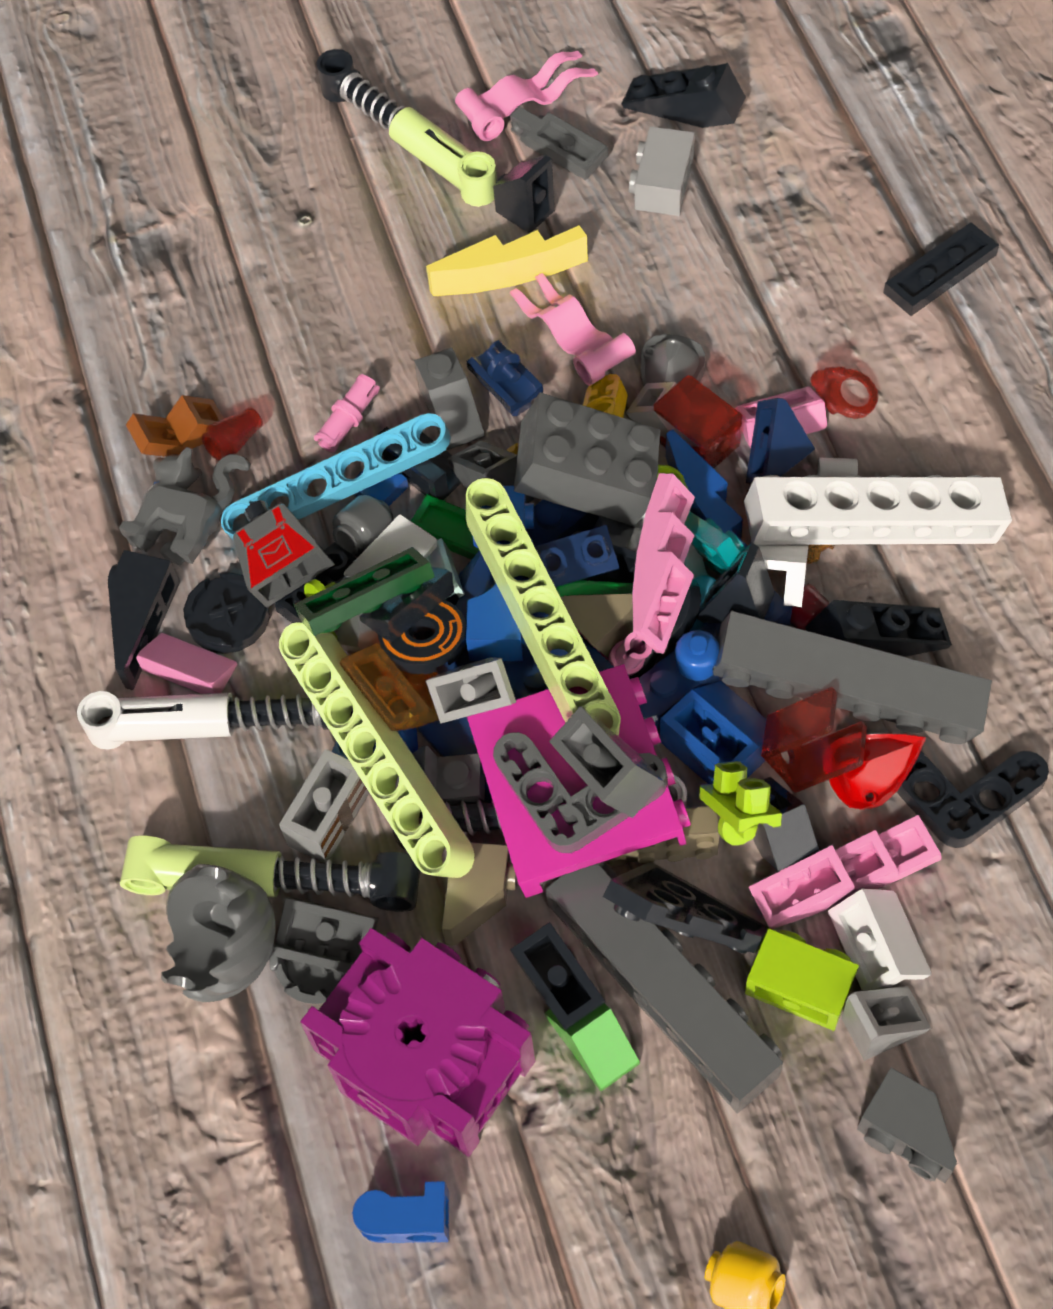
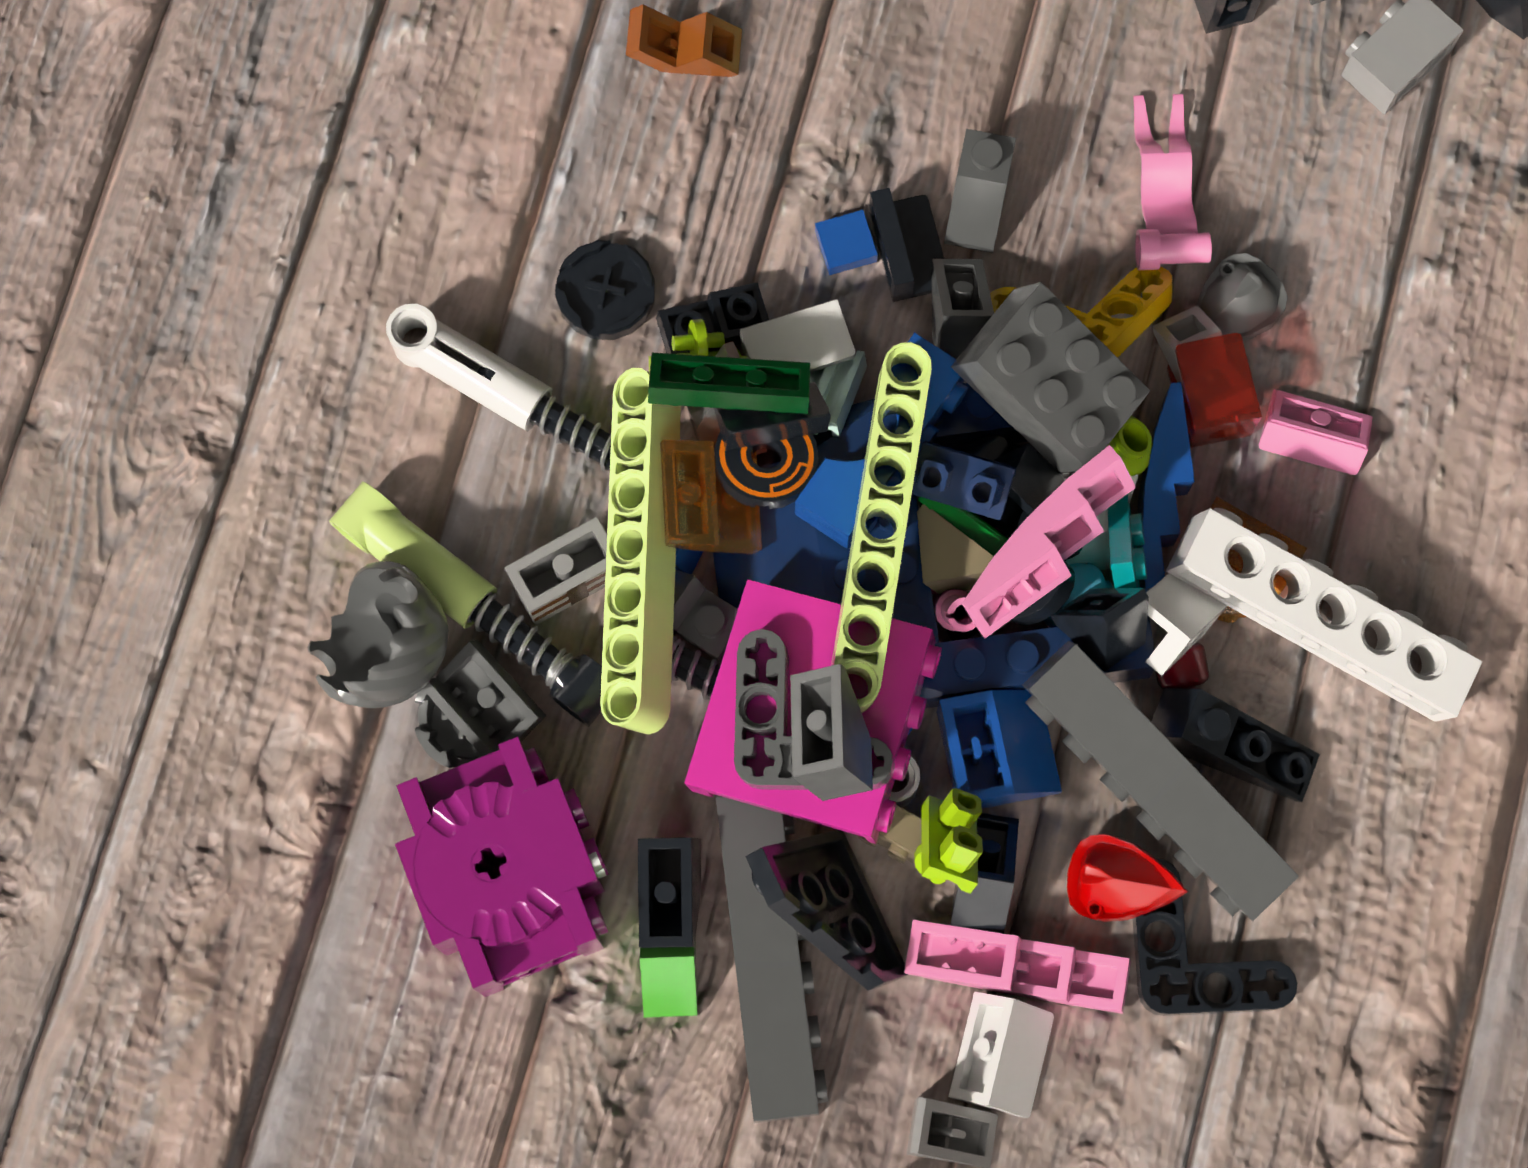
camera: 30 degrees right, 15 degrees up
(139, 600) = (523, 225): black slope -> none
(185, 512) = (632, 154): dark grey animal -> none
(186, 664) = (532, 323): bright pink slope -> none
(231, 433) = (733, 86): clear red cone -> none
(277, 552) = (688, 263): dark grey torso -> none
(333, 470) = (801, 209): medium azure beam -> none
(347, 413) = (866, 137): bright pink pin -> none
(360, 523) = (796, 281): dark grey head -> none
(406, 1217) = (372, 1007): blue leg -> none
(446, 522) = (878, 325): green tile -> none
(471, 689) = (769, 552): light grey slope -> none
(479, 893) = (652, 756): dark tan slope -> none
(497, 266) = (1132, 55): light yellow slope -> none
(506, 377) = (1053, 203): dark blue hips -> none
(696, 655) = (1019, 659): blue piece -> none
(776, 440) = (1279, 469): dark blue slope -> none
(801, 978) = (900, 1041): lime brick -> none
(821, 758) = (1072, 822): clear red piece -> none
(828, 387) = (1387, 434): clear red piece -> none
(837, 467) = (1325, 537): white hinge -> none

